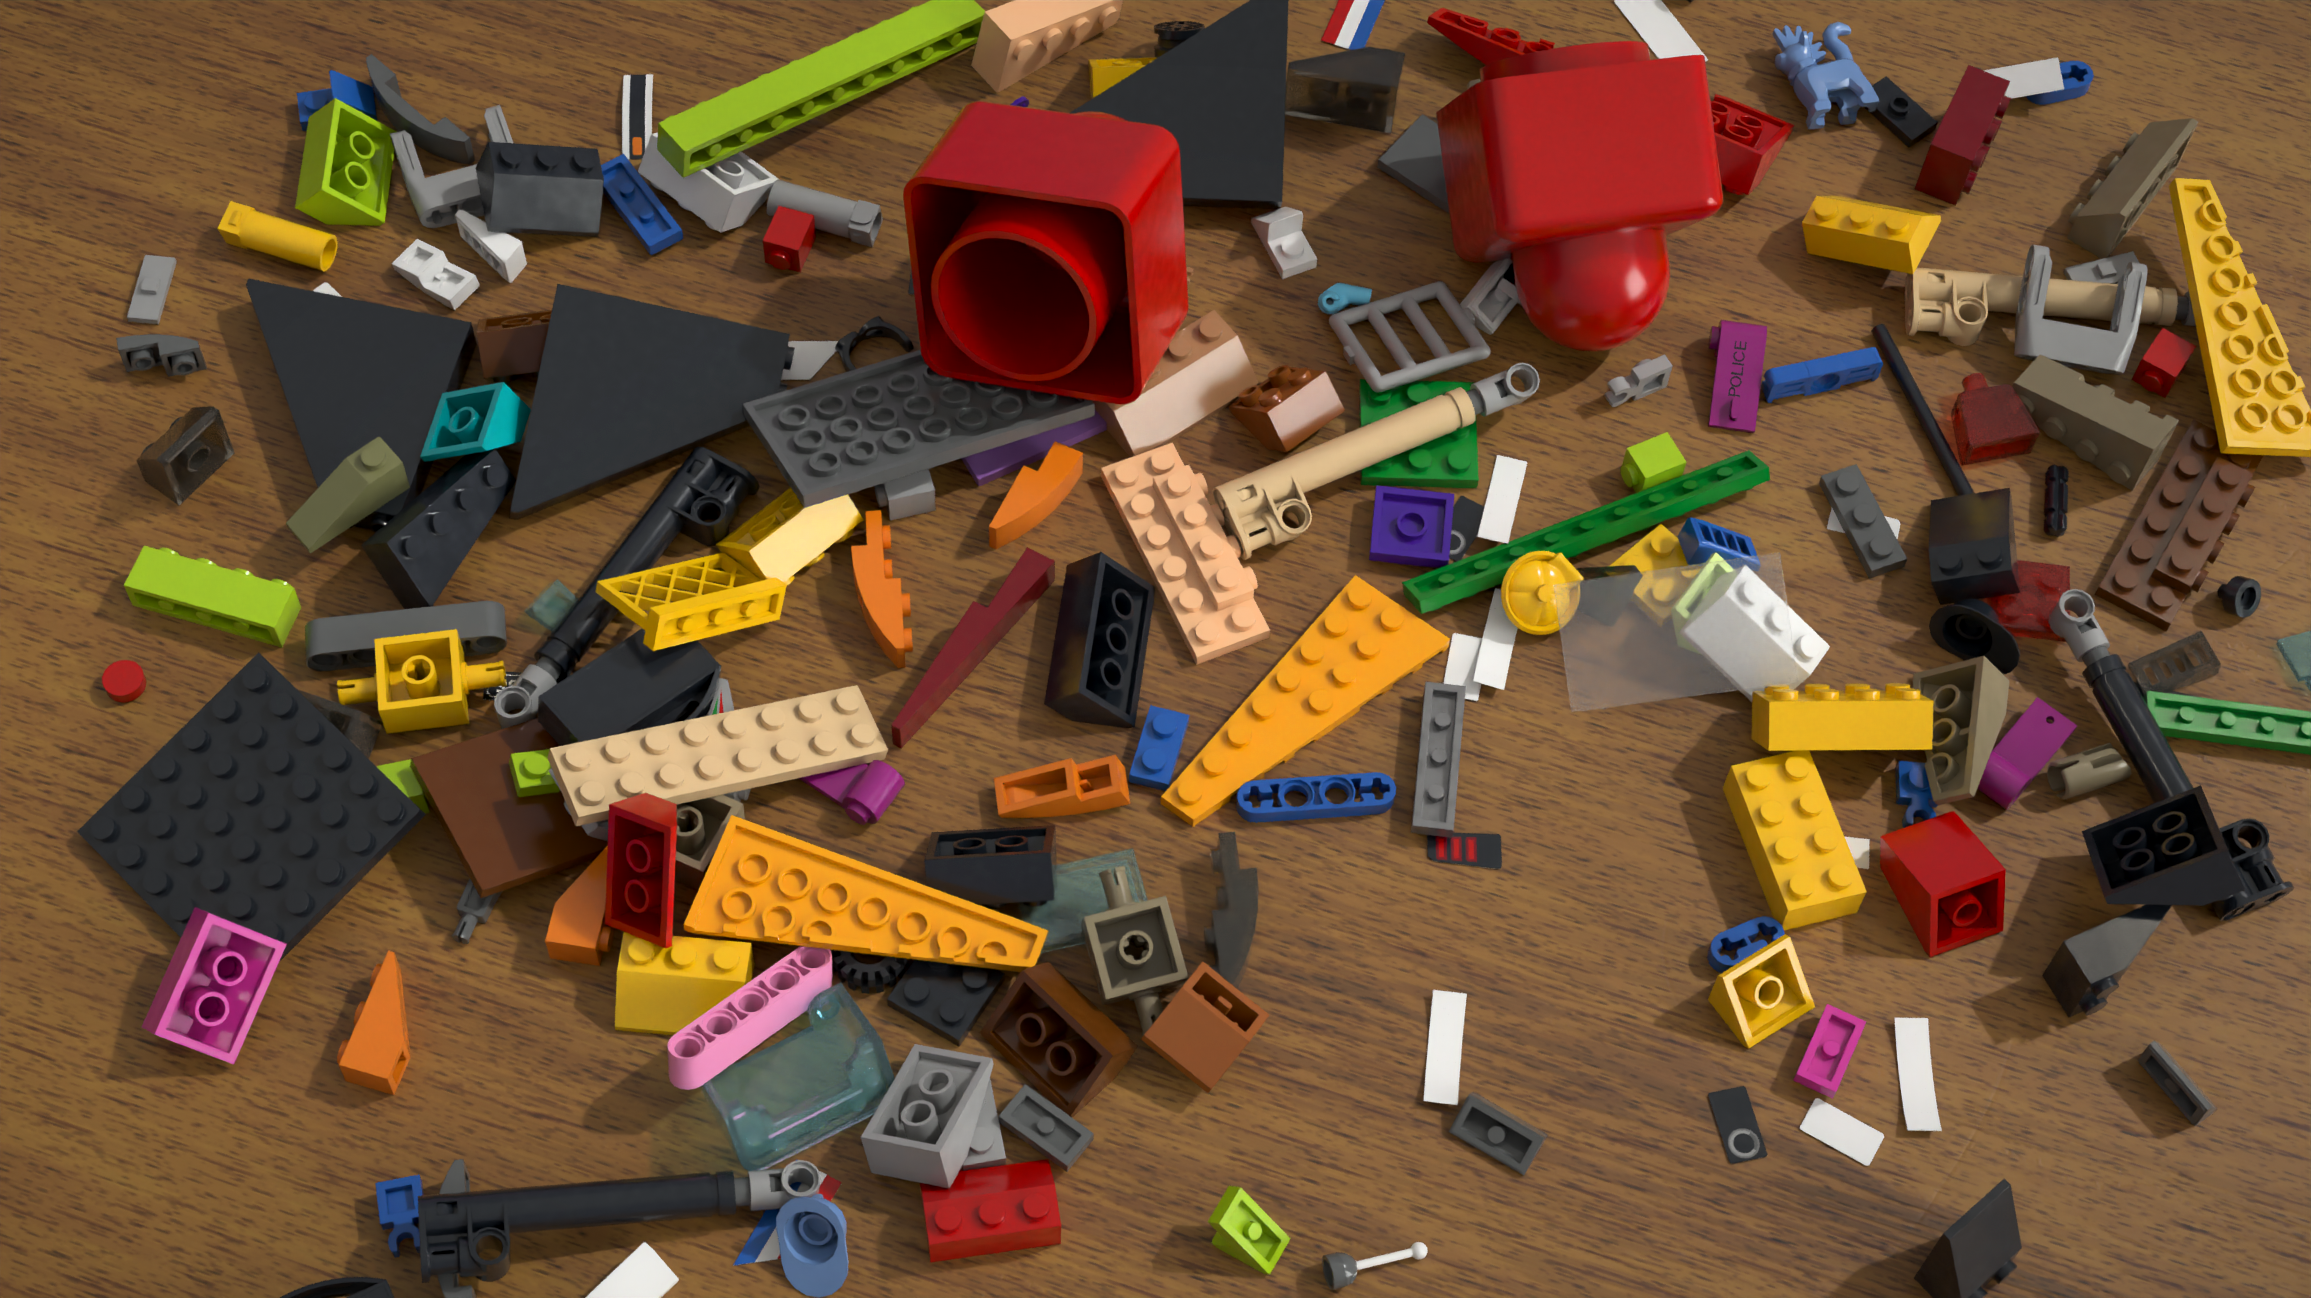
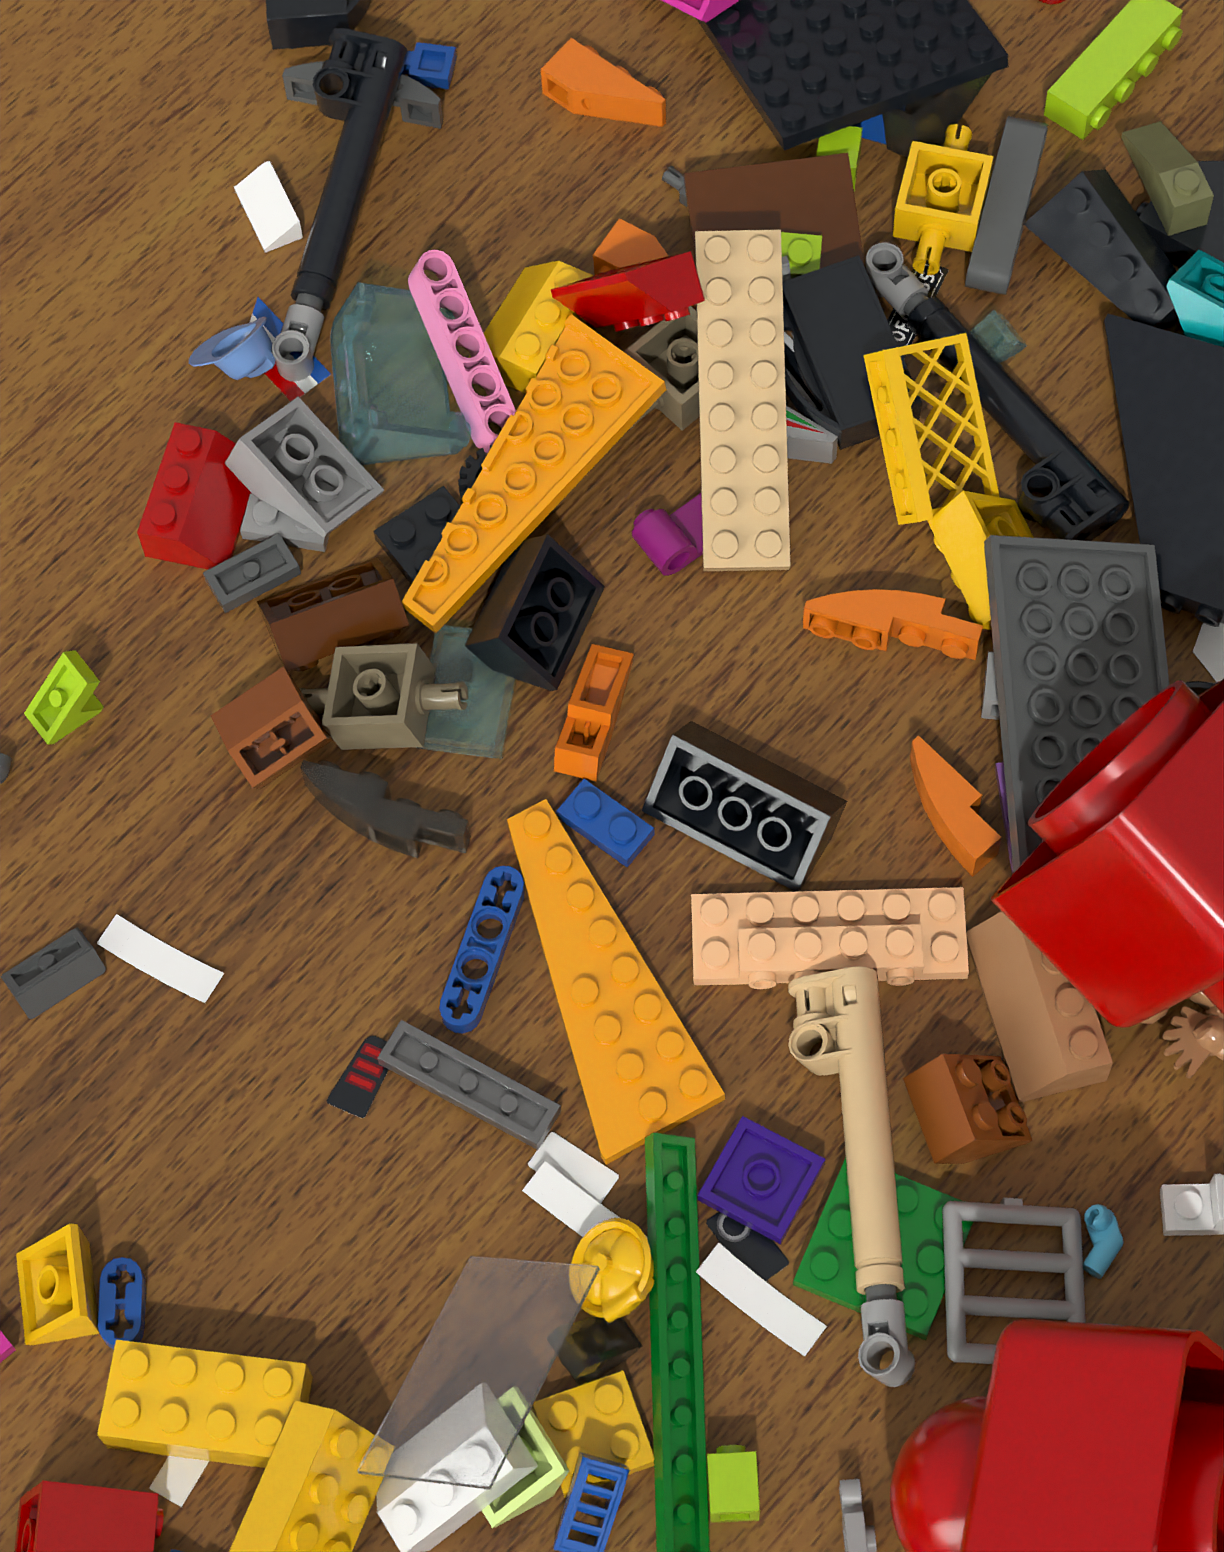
camera: 120 degrees right, 5 degrees up
(973, 640) = (800, 689): dark red slope -> none

